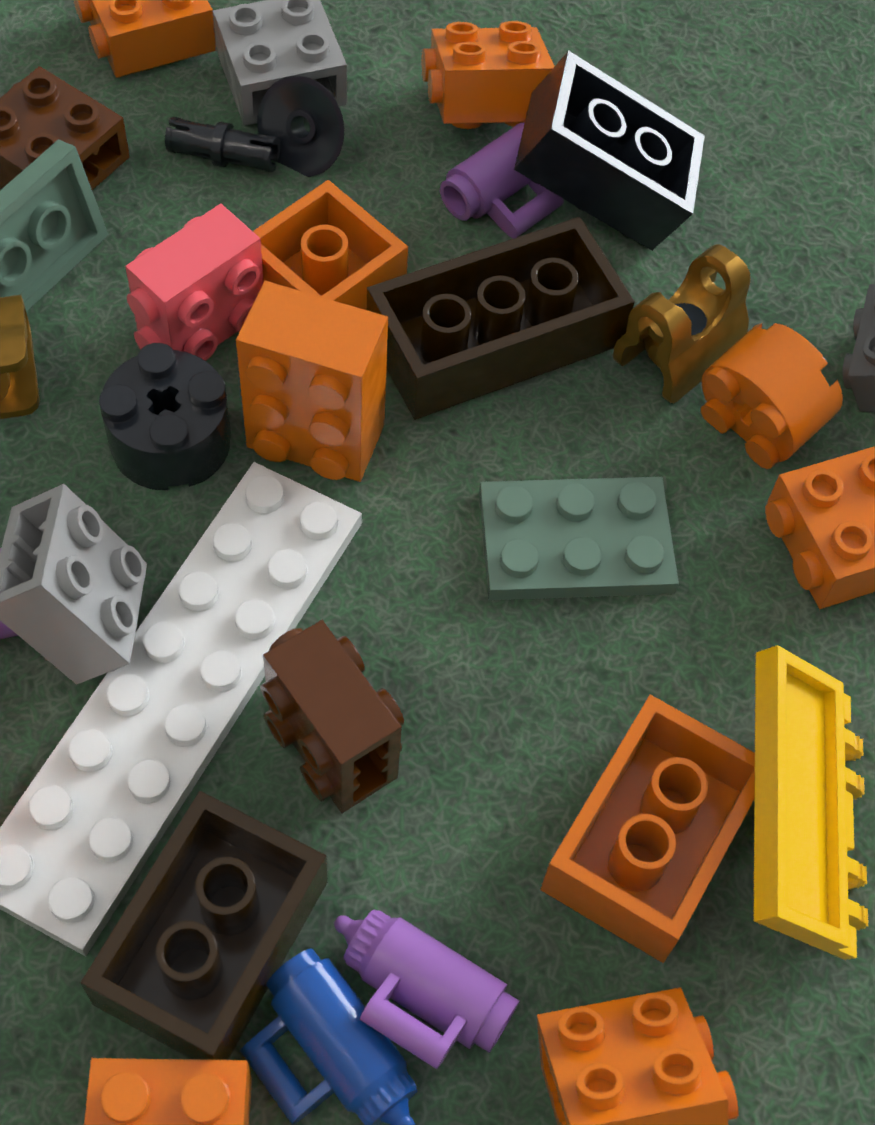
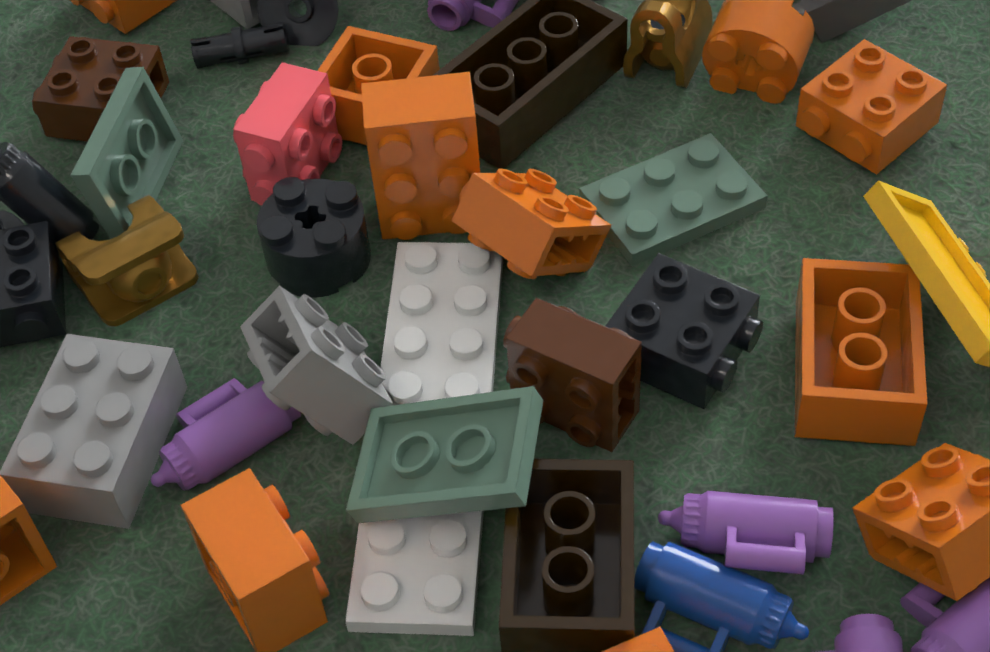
camera: 15 degrees left, 10 degrees down
(139, 758) = (447, 456): none -> sand green plate
(391, 510) = (530, 222): none -> orange brick
(485, 712) = (688, 328): none -> black brick

